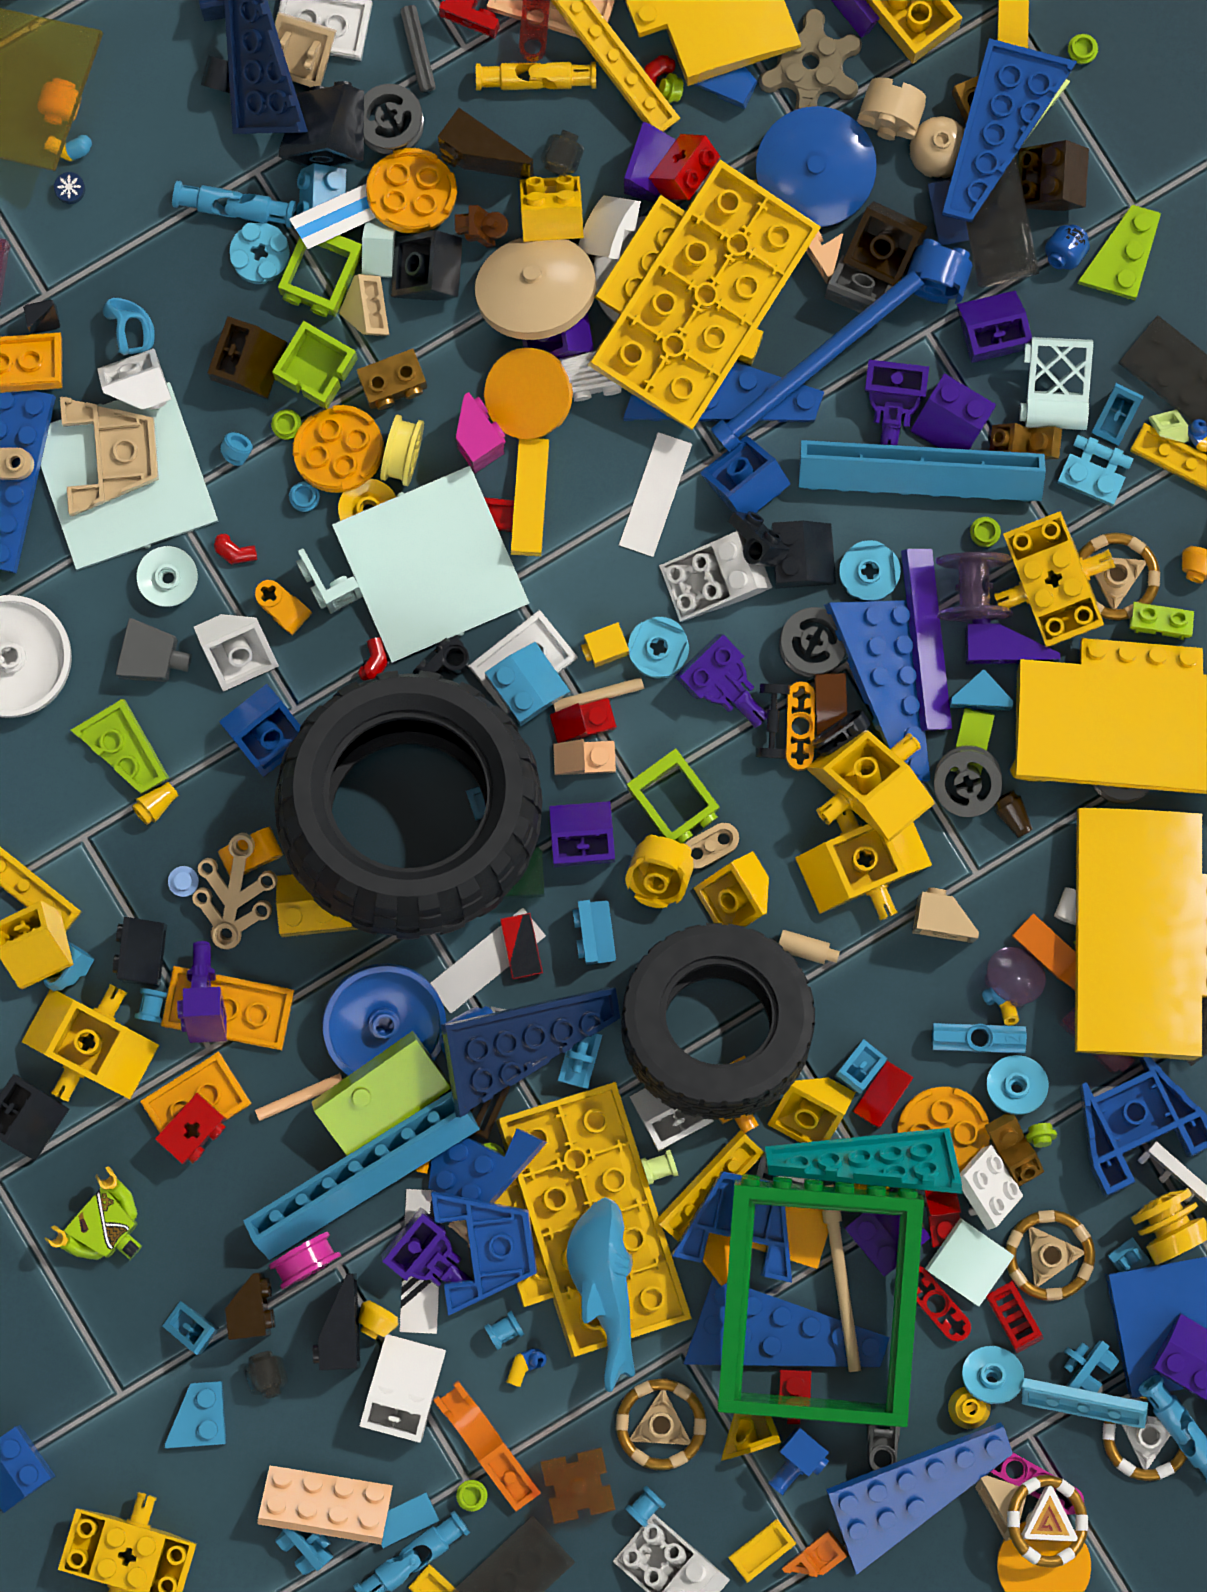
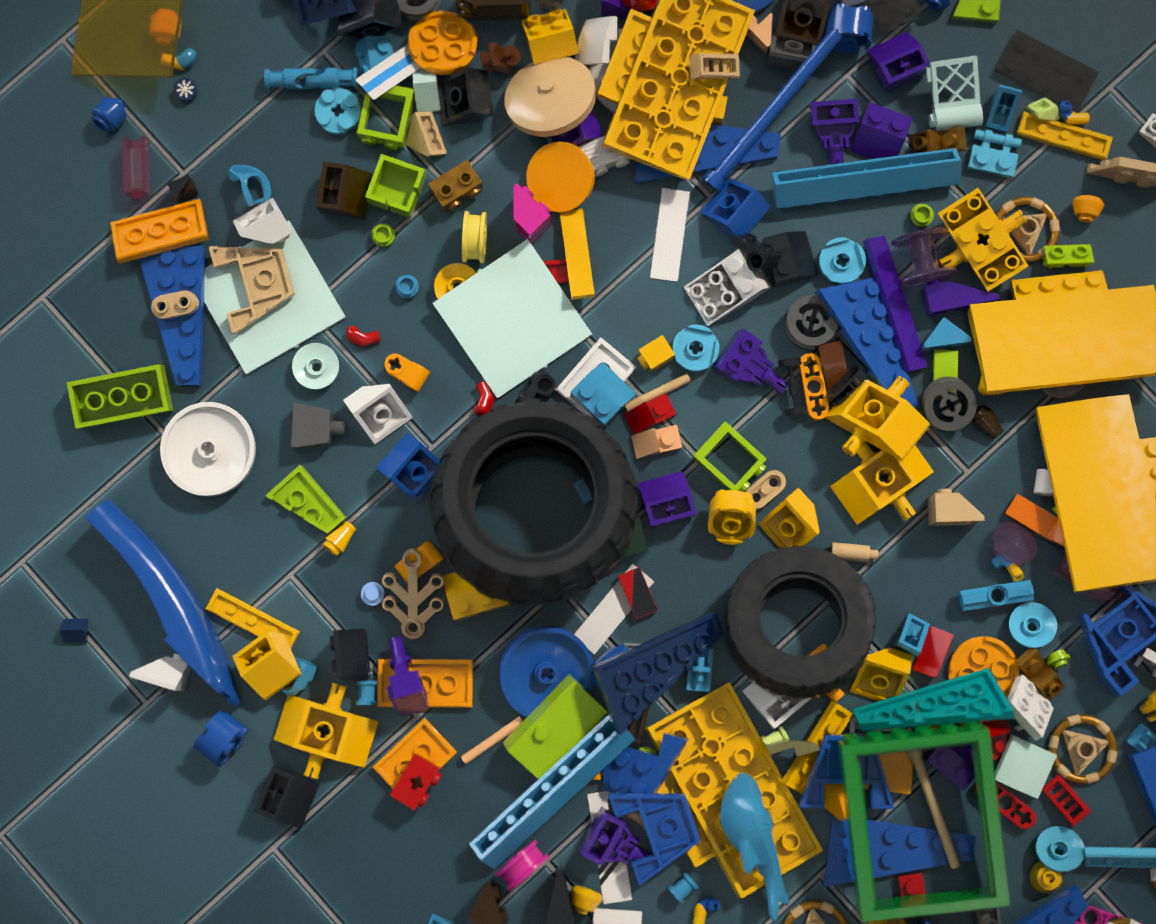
camera: 10 degrees left, 0 degrees up
(102, 1224) = (361, 867): lime torso -> none
(236, 448) = (348, 260): dark azure tile -> none
(338, 449) = (426, 245): light orange tile -> none
(342, 590) = (449, 353): light aqua bracket -> none
(597, 933) = (692, 572): dark azure bracket -> none
(686, 1179) = (800, 747): none -> olive slope
(734, 289) = (700, 66): none -> tan slope
(1098, 1356) = (1135, 819): dark azure hips -> none

